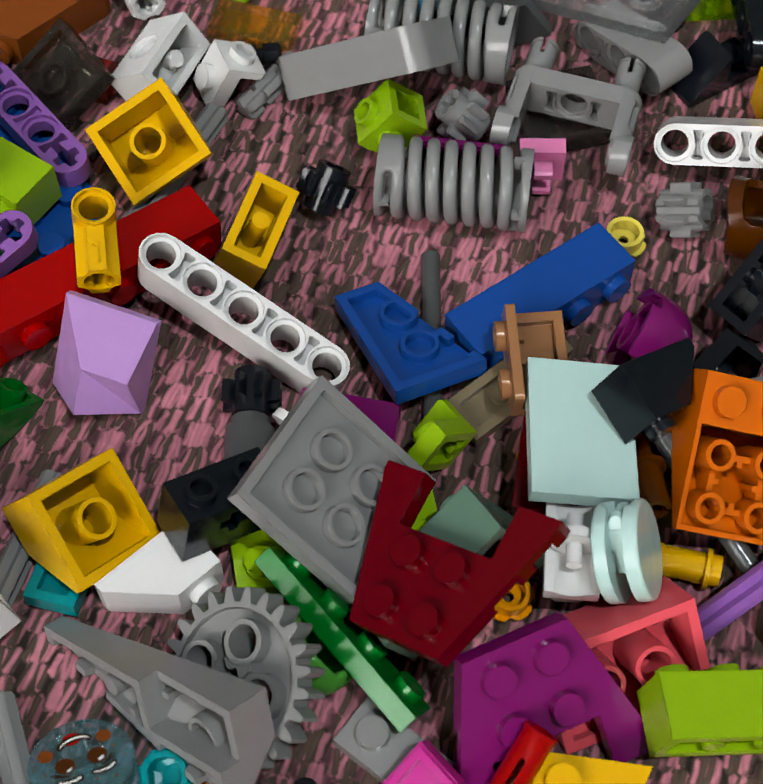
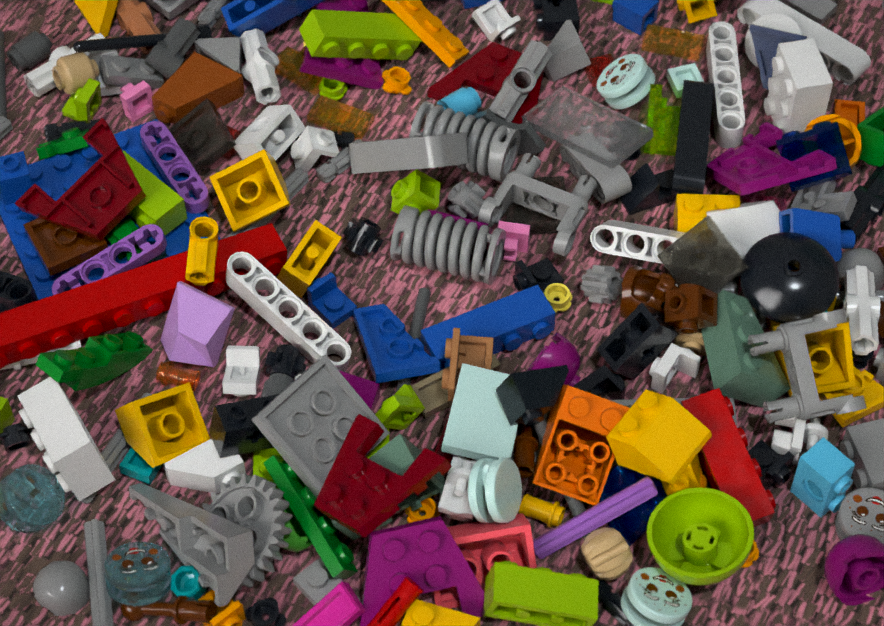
camera: 10 degrees right, 5 degrees down
(89, 435) = (177, 375): none -> clear orange pin
(187, 414) = (242, 370): none -> white bracket
(297, 288) = (329, 301): none -> blue bracket
(584, 210) = (539, 273): none -> black bracket

